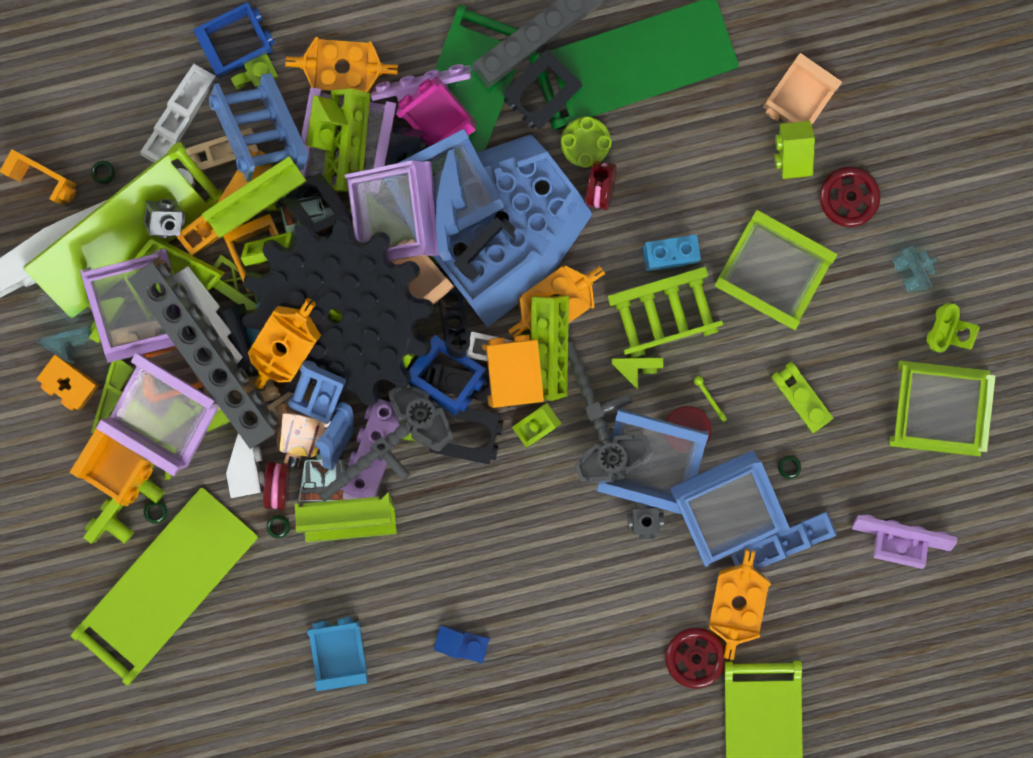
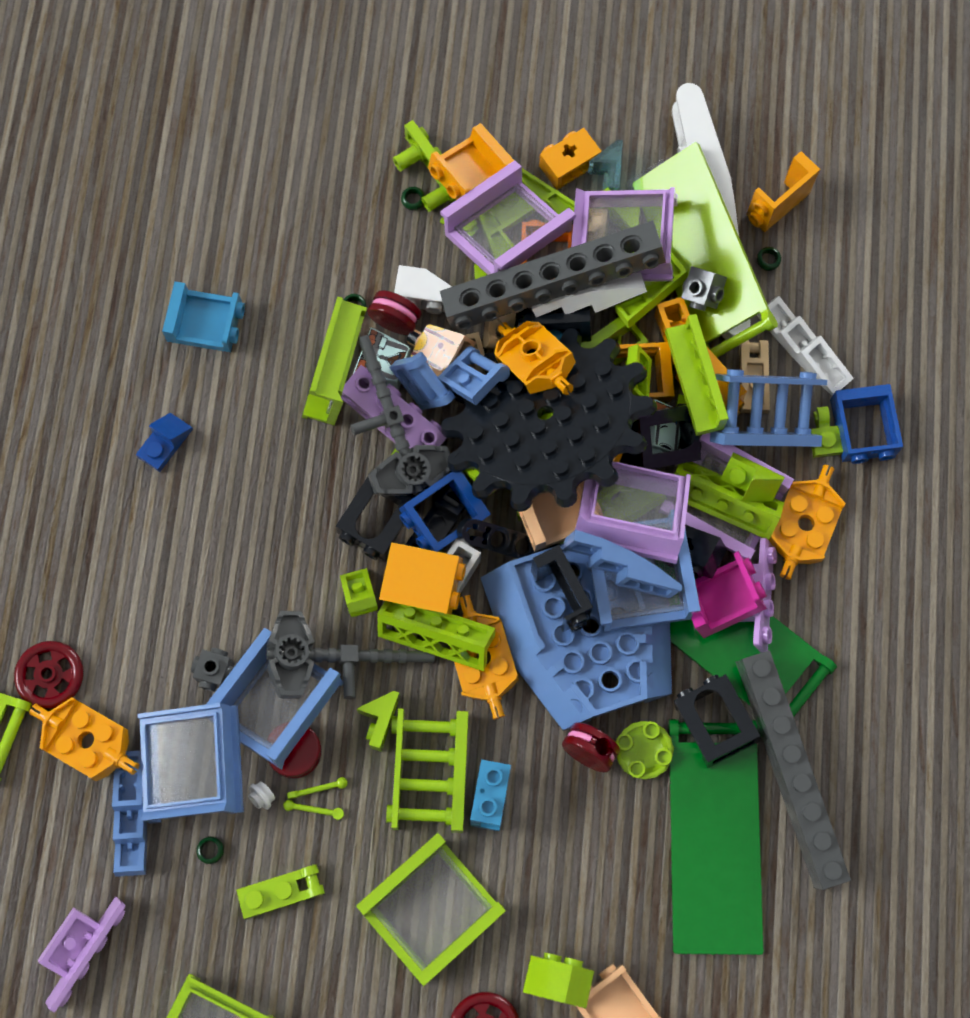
camera: 110 degrees right, 15 degrees down
(166, 583) = (339, 187): lime flag -> none
(724, 375) = (337, 813): none -> lime hinge
(733, 442) = (261, 795): none -> white plate

